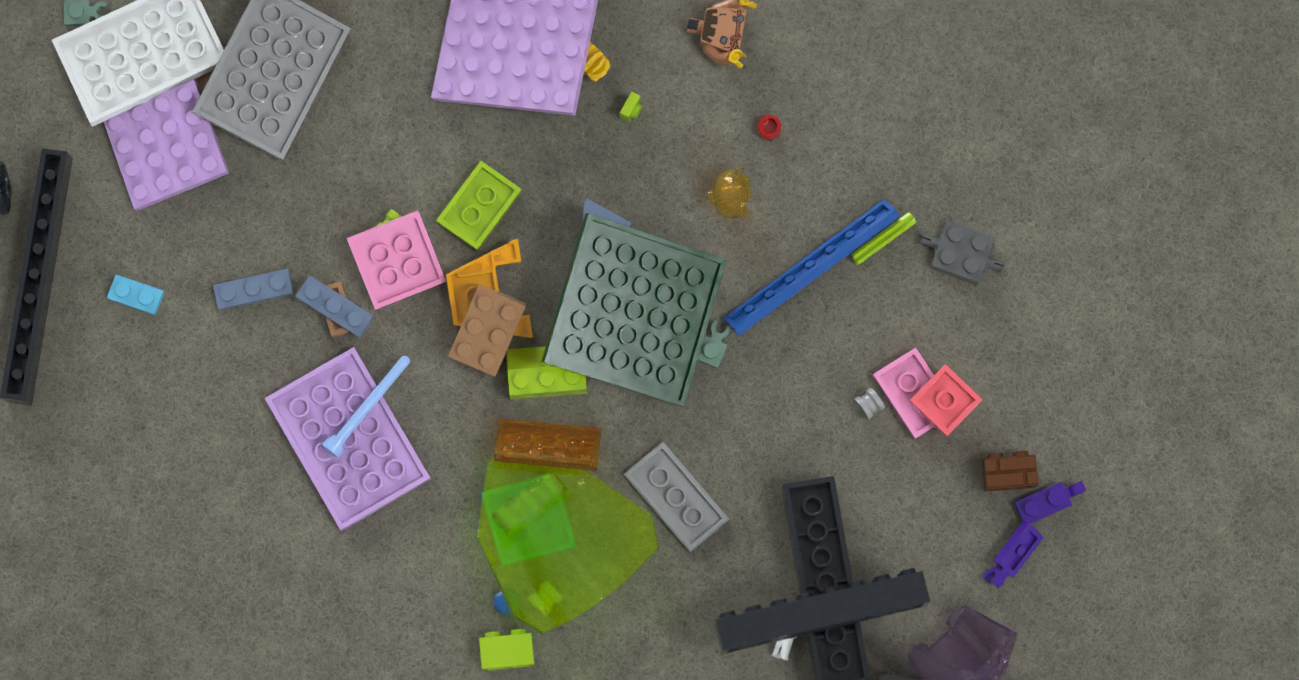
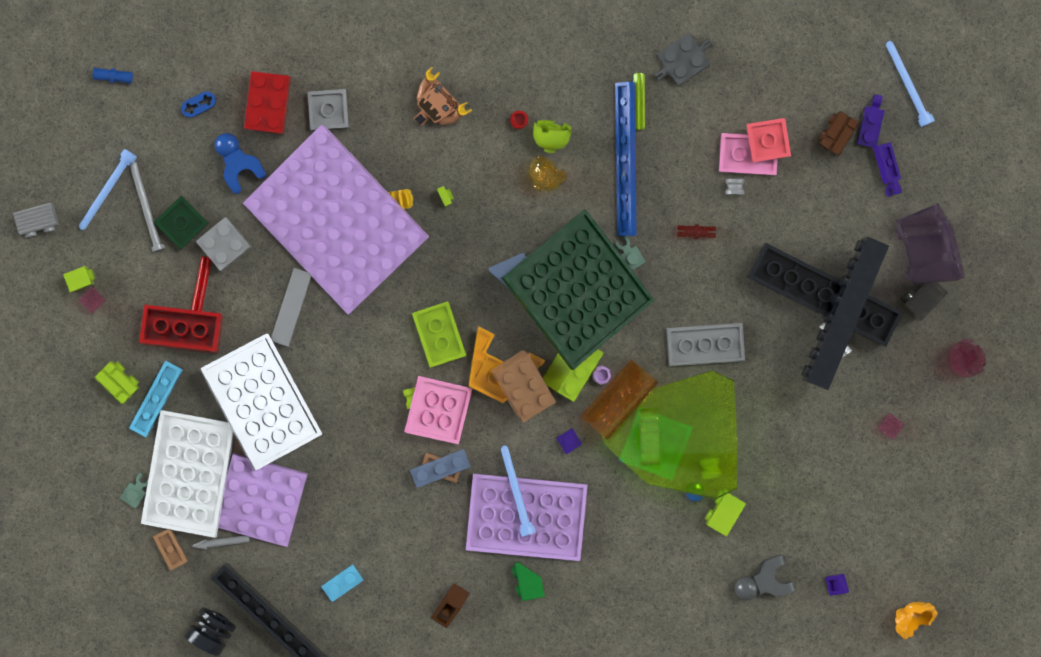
camera: 50 degrees left, 10 degrees up
(45, 90) = (170, 549): none -> medium nougat plate
(77, 123) = (205, 544): none -> light grey piece
(192, 425) = (450, 605): none -> reddish brown slope
(253, 289) = (391, 509): sand blue plate -> none
(277, 492) = (530, 582): none -> green slope
(396, 34) = (291, 307): none -> light grey tile
(464, 426) = (569, 441): none -> dark purple plate
(561, 407) = (601, 374): none -> lavender tile
(777, 170) = (550, 135): none -> lime cylinder
(790, 398) = (696, 231): none -> clear red pin
(1098, 555) = (924, 117): none -> light blue piece

